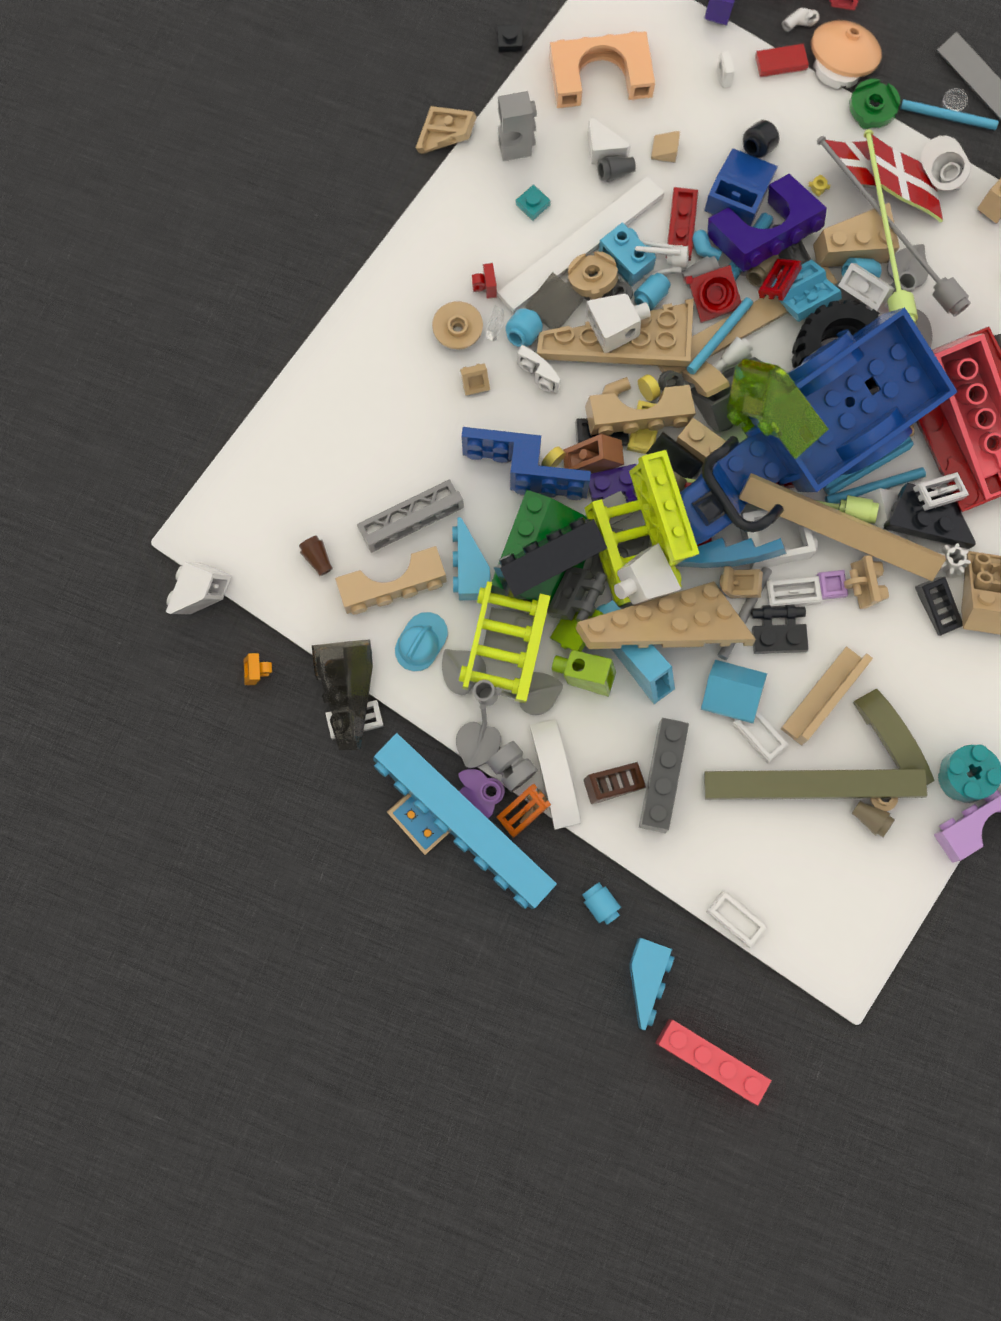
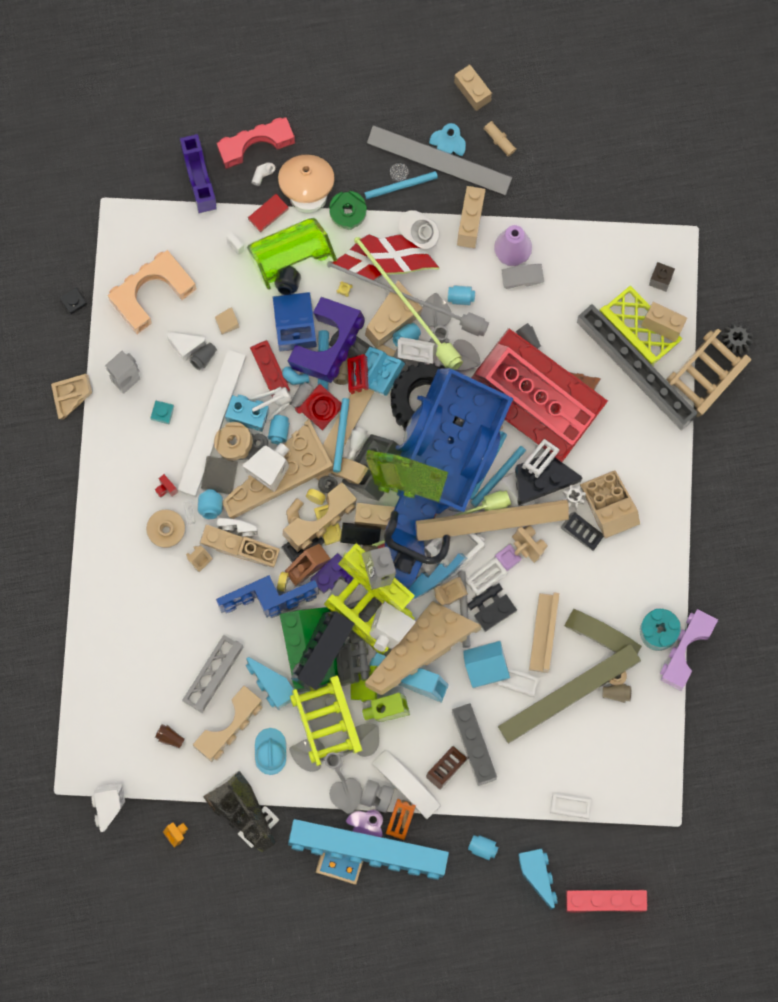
camera: 30 degrees left, 0 degrees up
(527, 392) = (239, 547): none -> tan slope
(679, 486) = (379, 565): none -> light grey torso
(786, 107) = (290, 247): none -> clear neon green windscreen
(951, 262) = (461, 295): none -> medium azure brick

